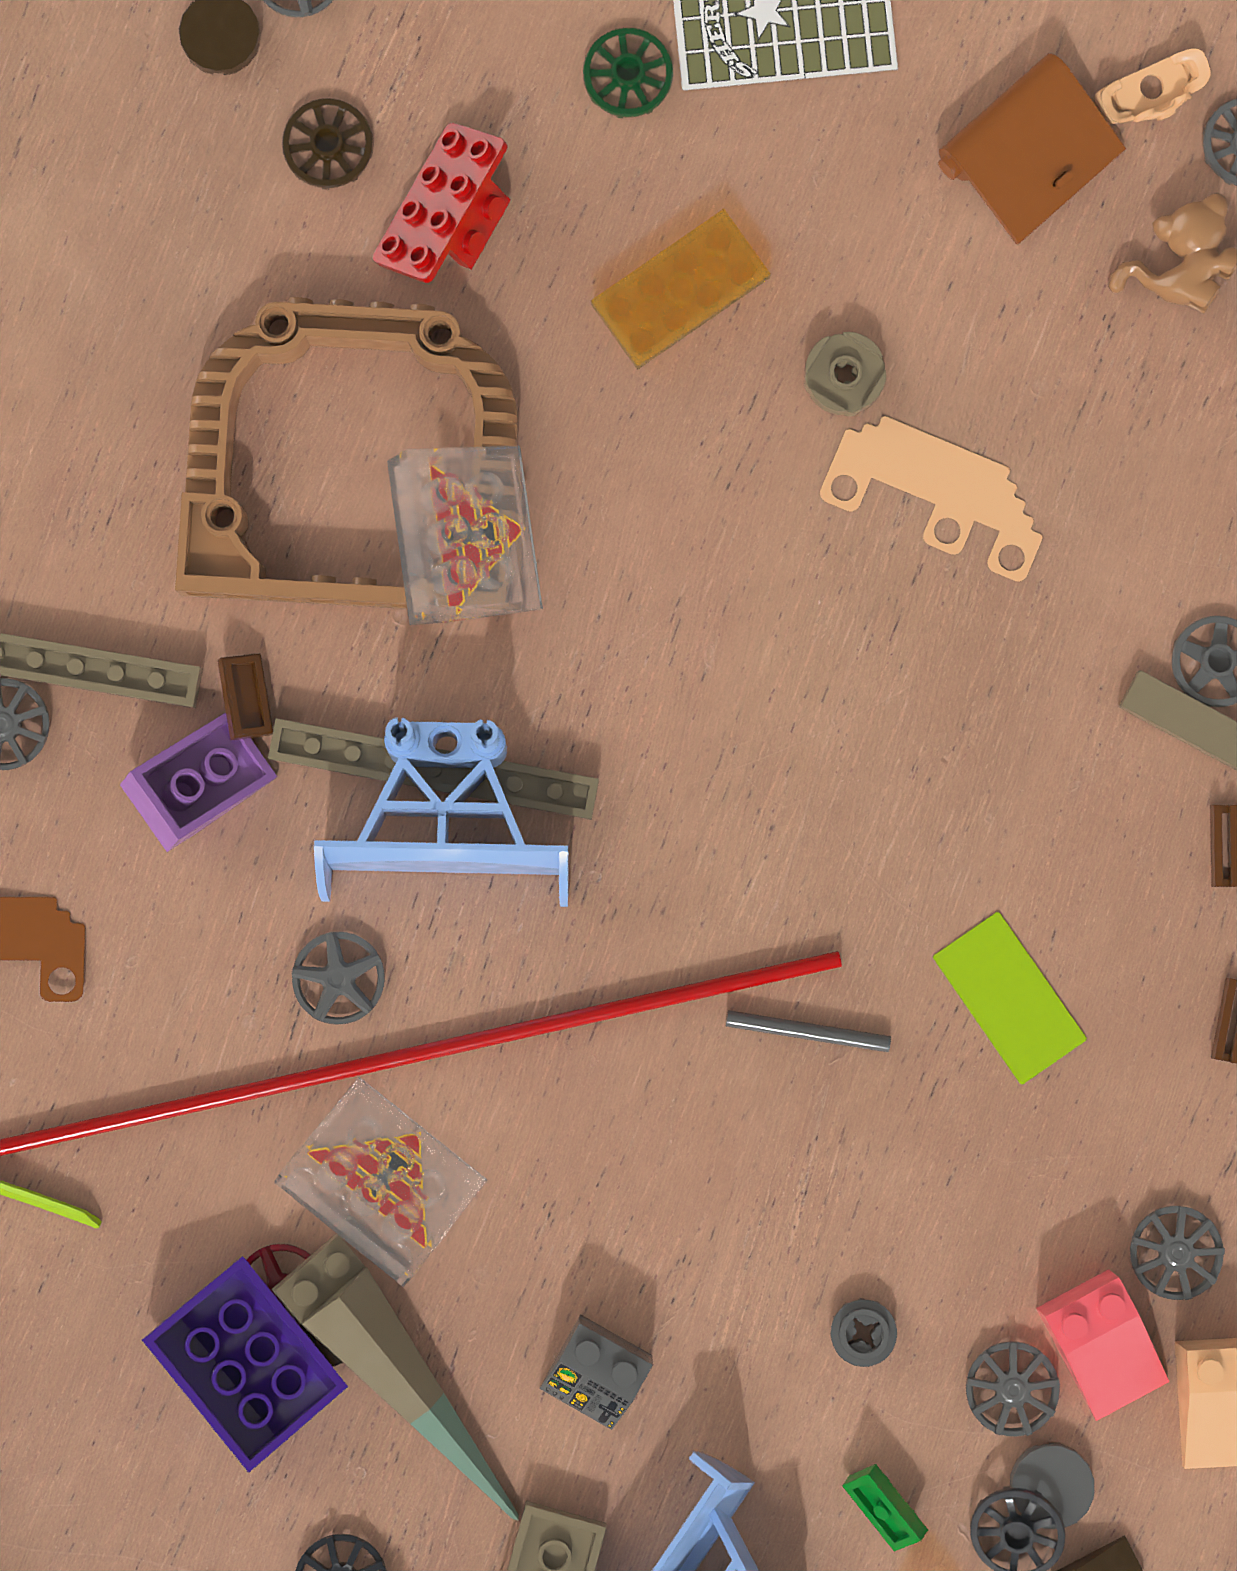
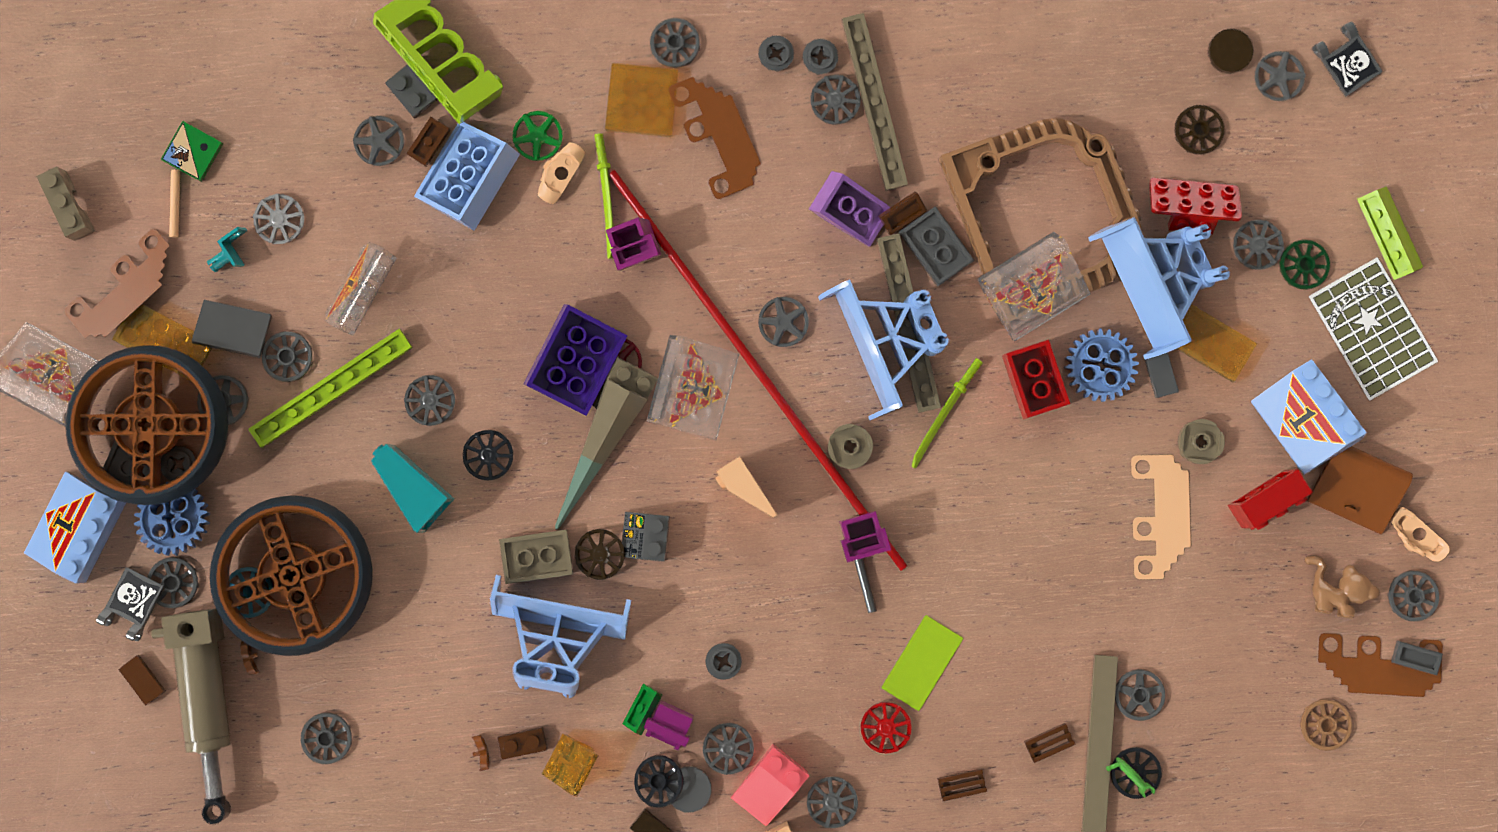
camera: 60 degrees right, 0 degrees up
(88, 1178) = (632, 243): none -> magenta plate
(326, 665) = (936, 246): none -> dark grey tile
(547, 333) = (1152, 279): none -> light blue piece
(561, 132) = (1258, 244): none -> dark grey wheel
(578, 1173) = (742, 484): none -> light nougat slope
(581, 732) = (960, 387): none -> lime sword
(592, 1465) = (599, 554): none -> dark brown wheel
(611, 978) = (843, 457): none -> dark tan plate
(622, 600) = (1035, 379): none -> red brick
(677, 501) = (1105, 345): none -> medium blue gear
(703, 388) = (1161, 375): none -> dark grey tile
(758, 1009) = (863, 537): none -> magenta plate
(883, 179) = (1308, 417): none -> light blue slope
(930, 1473) = (669, 725): none -> magenta plate
(991, 302) = (1270, 499): none -> red brick
(1092, 1107) = (886, 727): none -> red wheel

